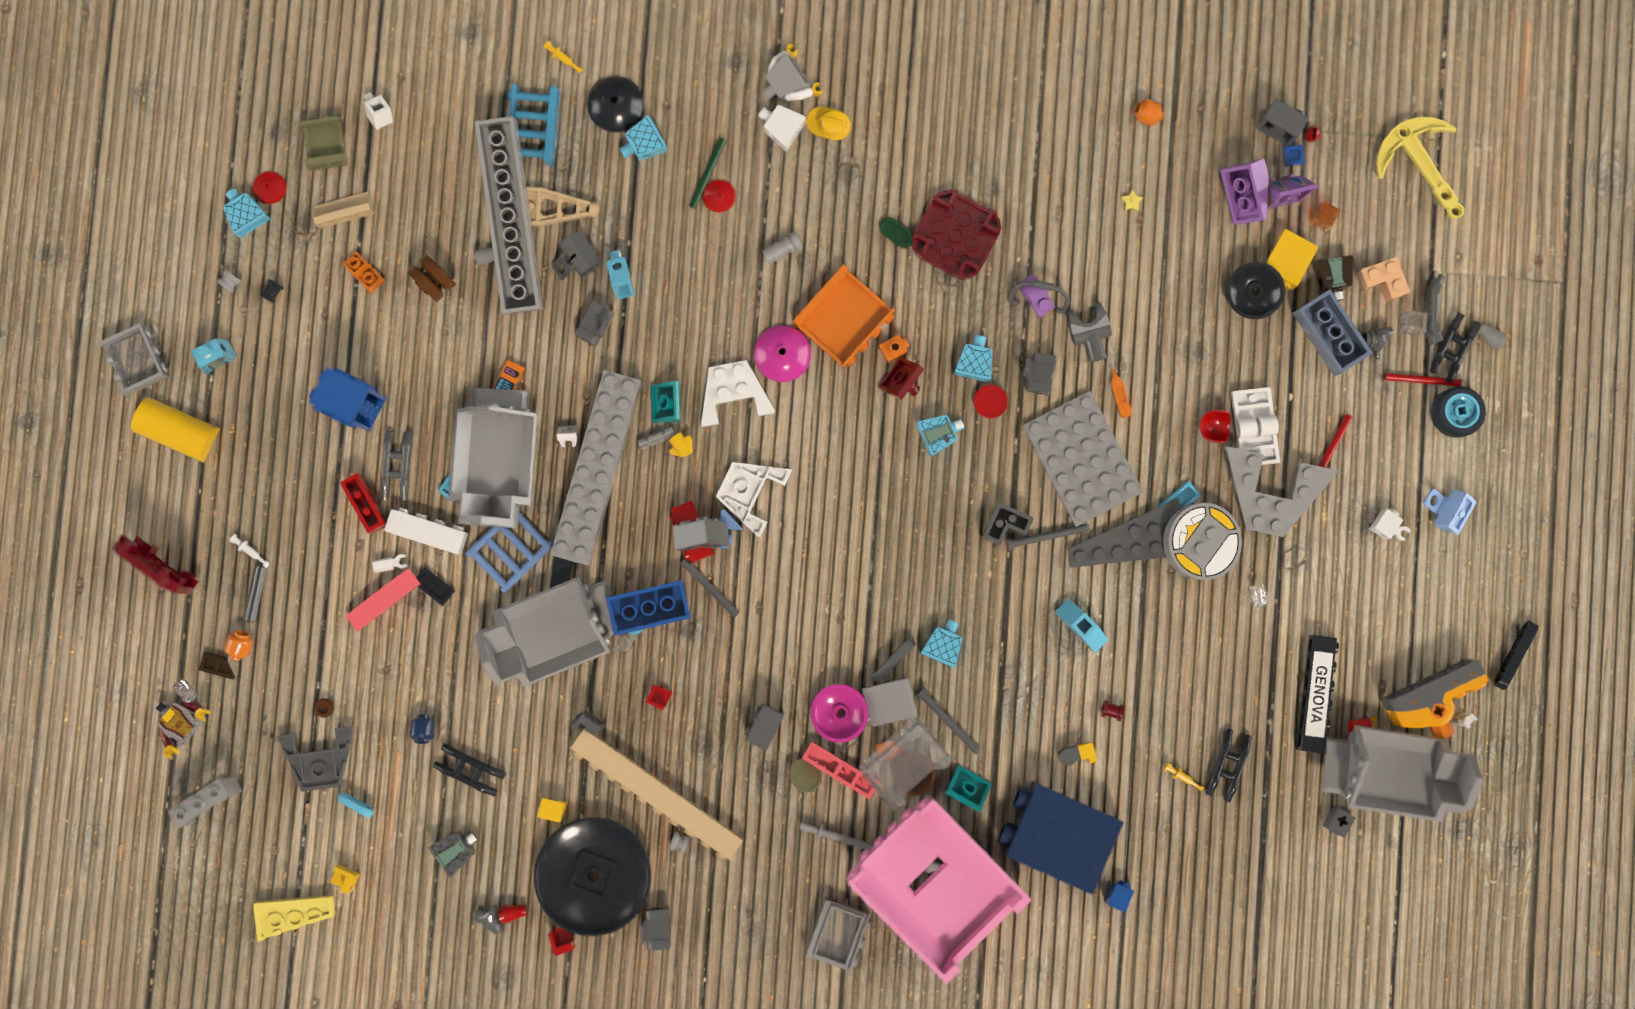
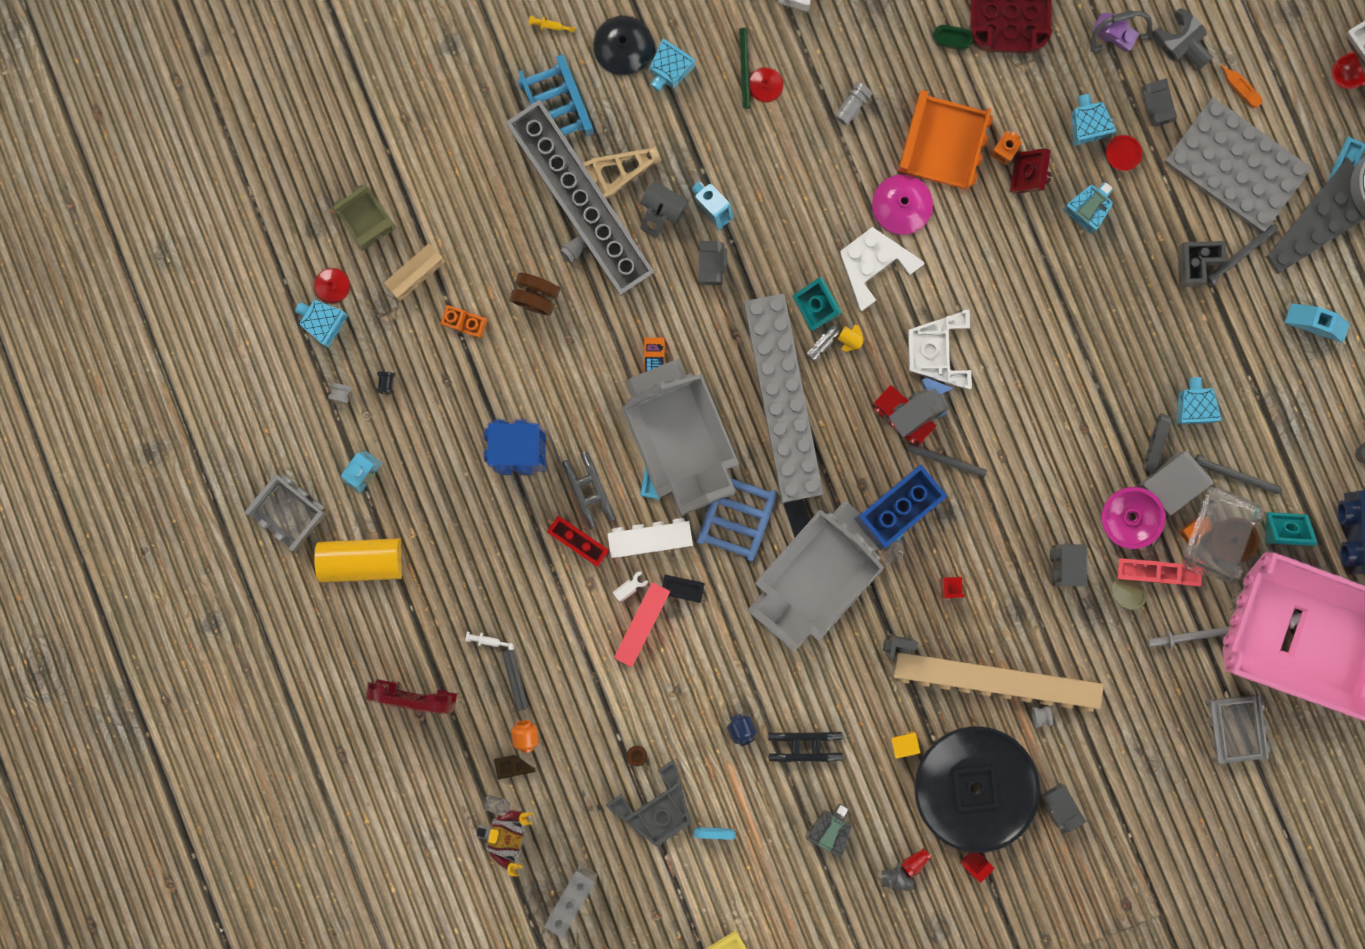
camera: 15 degrees left, 0 degrees up
(344, 878) = (738, 909): yellow panel -> none
(377, 111) = (401, 160): white brick -> none
(567, 433) = (737, 380): white tile -> none

